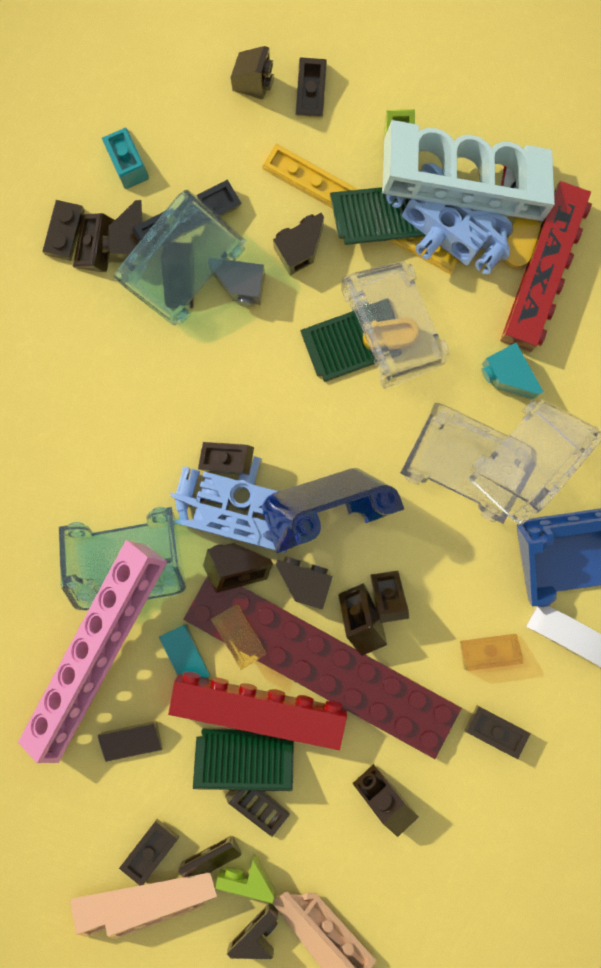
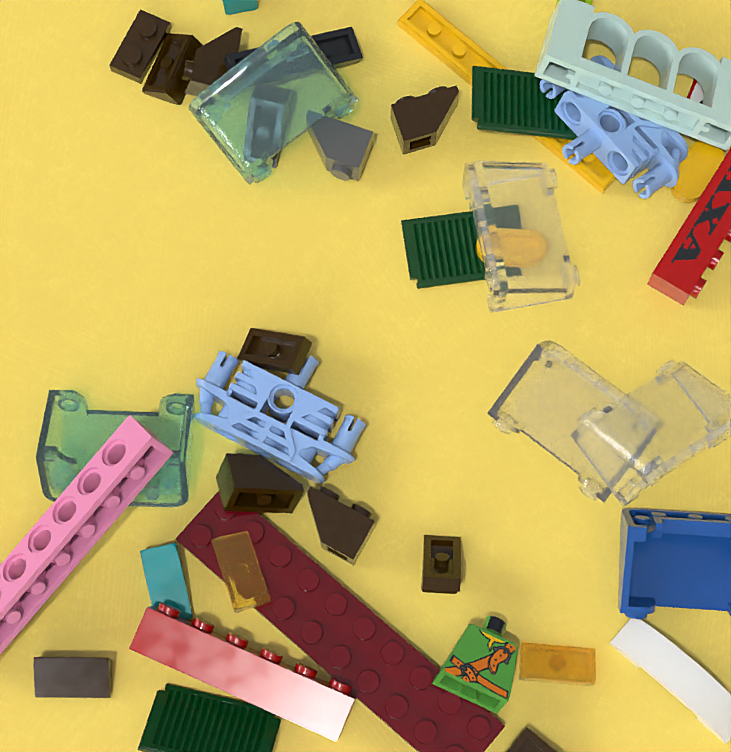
camera: 10 degrees right, 10 degrees down
(293, 511) = (347, 427): windscreen -> none
(361, 620) = (400, 586): dark brown slope -> none
(435, 668) = (481, 666): none -> torso
(511, 373) = (652, 323): teal slope -> none

